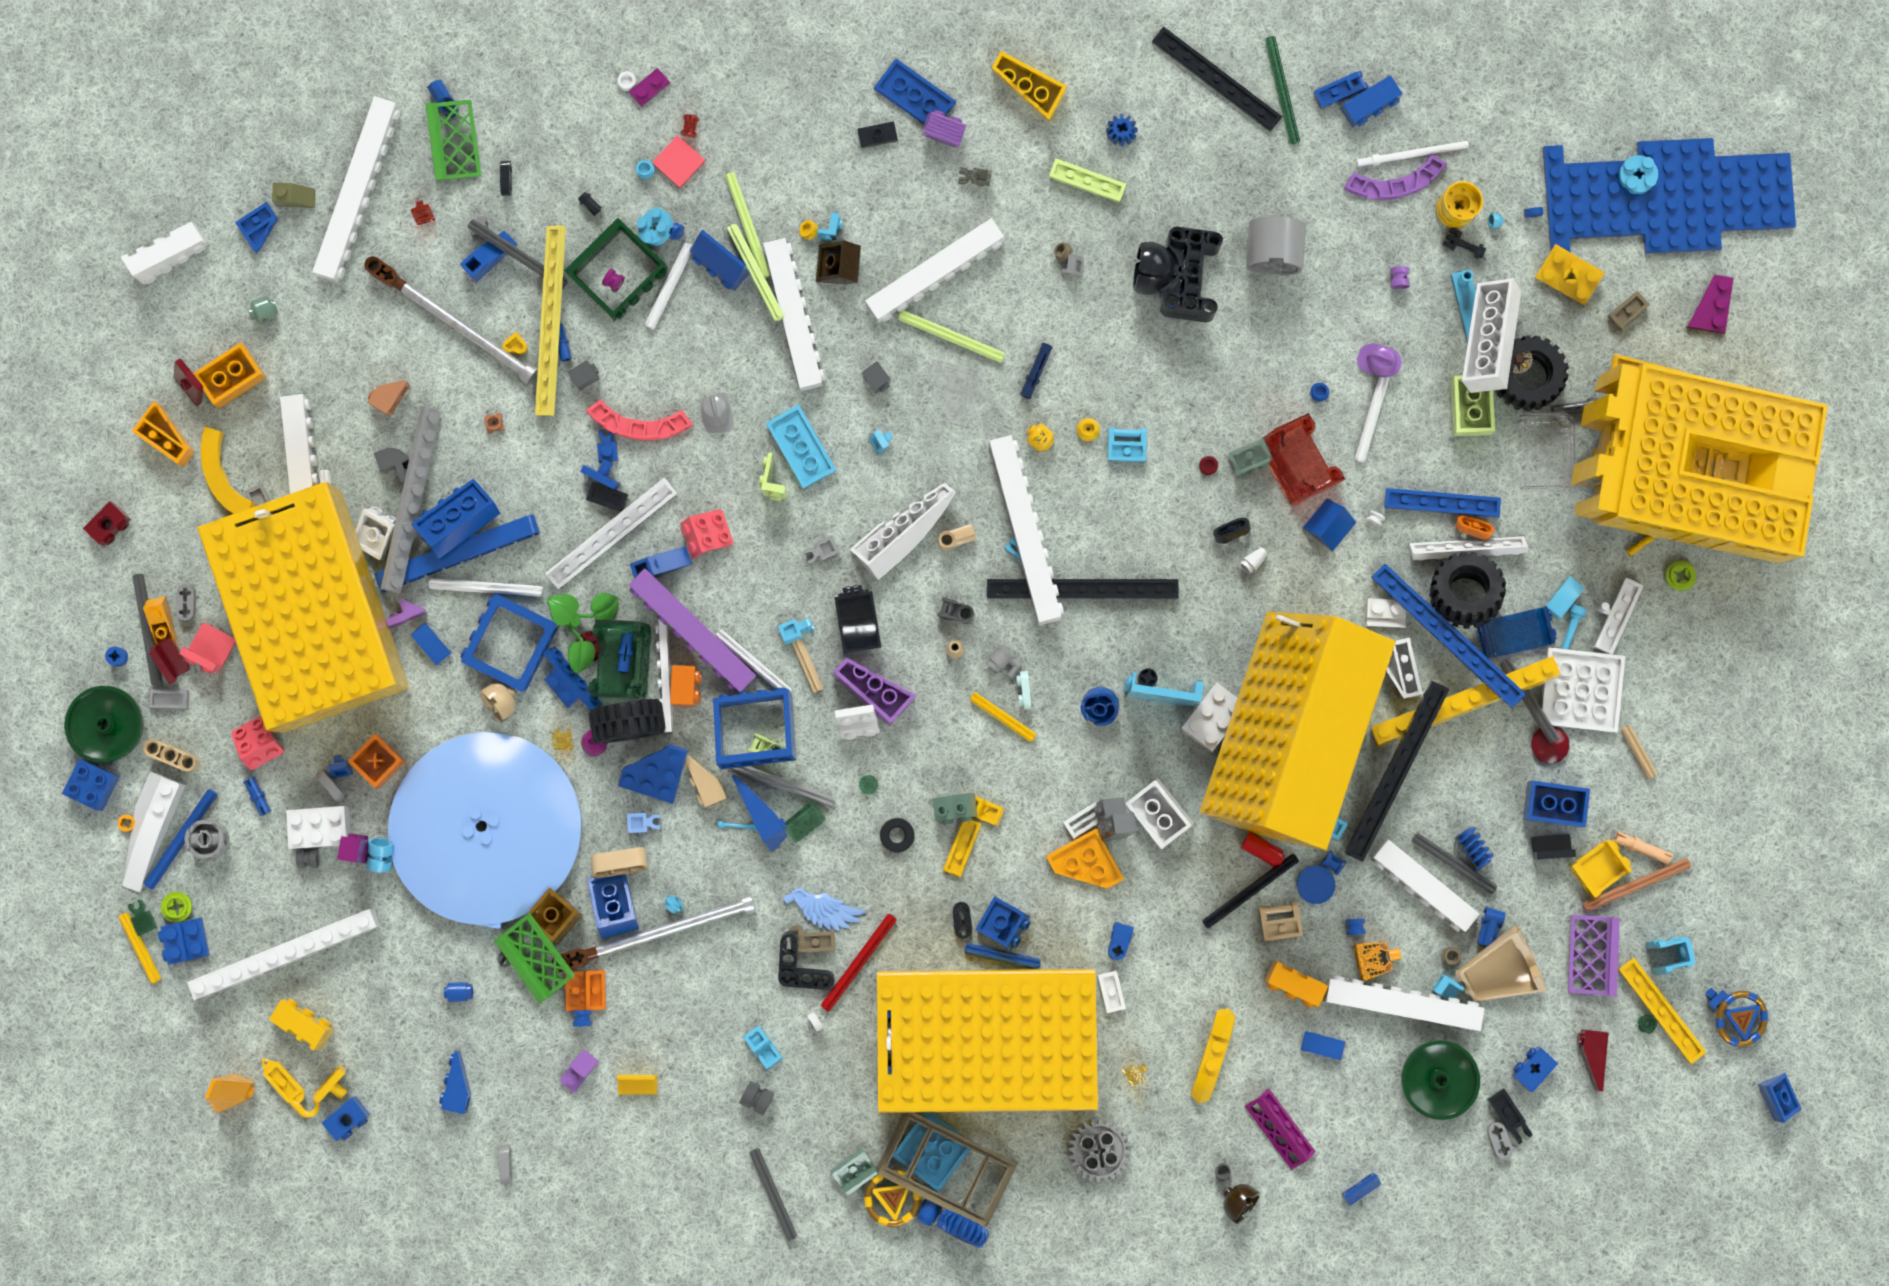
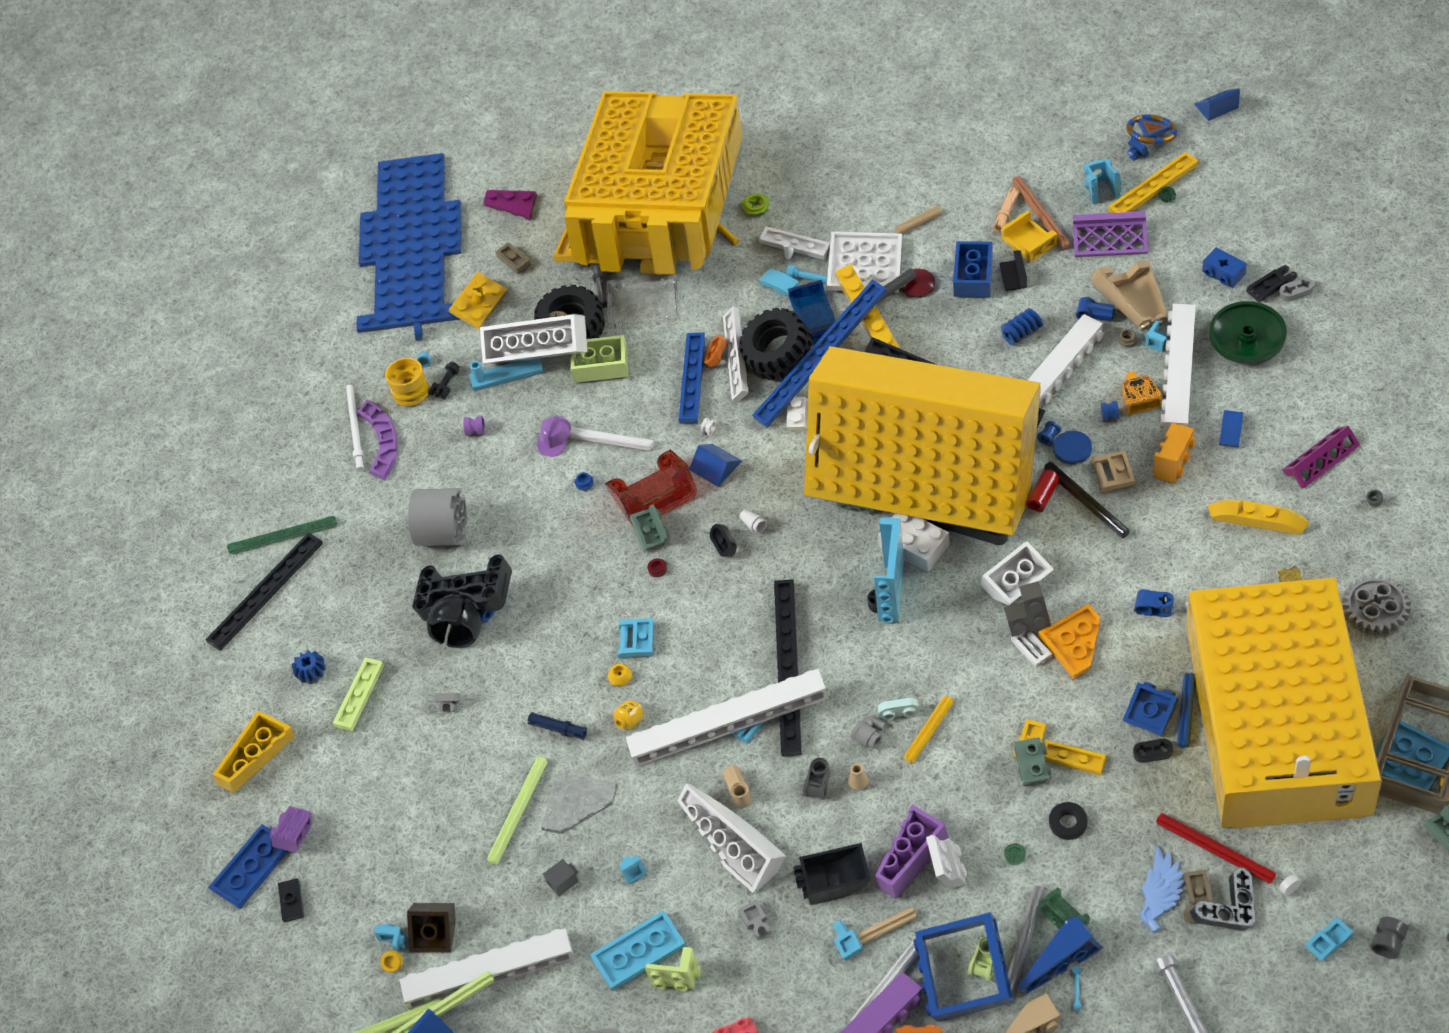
camera: 85 degrees left, 30 degrees down
(935, 270) = (446, 830): white brick -> none
(977, 176) = (346, 794): clear smoke plate -> none
(1062, 250) = (427, 711): dark tan plate -> none
(1100, 706) = (910, 634): blue cylinder -> none
(1239, 1201) = (1402, 479): dark brown cylinder -> none
(1340, 89) = (287, 488): blue plate -> none
(1361, 1189) = (1365, 388): blue slope -> none
(1371, 102) = (301, 460): blue brick -> none
(1455, 863) = (1037, 343): dark grey axle -> none
(1594, 1053) = (1204, 226): dark red slope -> none
(1631, 182) = (392, 249): medium azure plate -> none

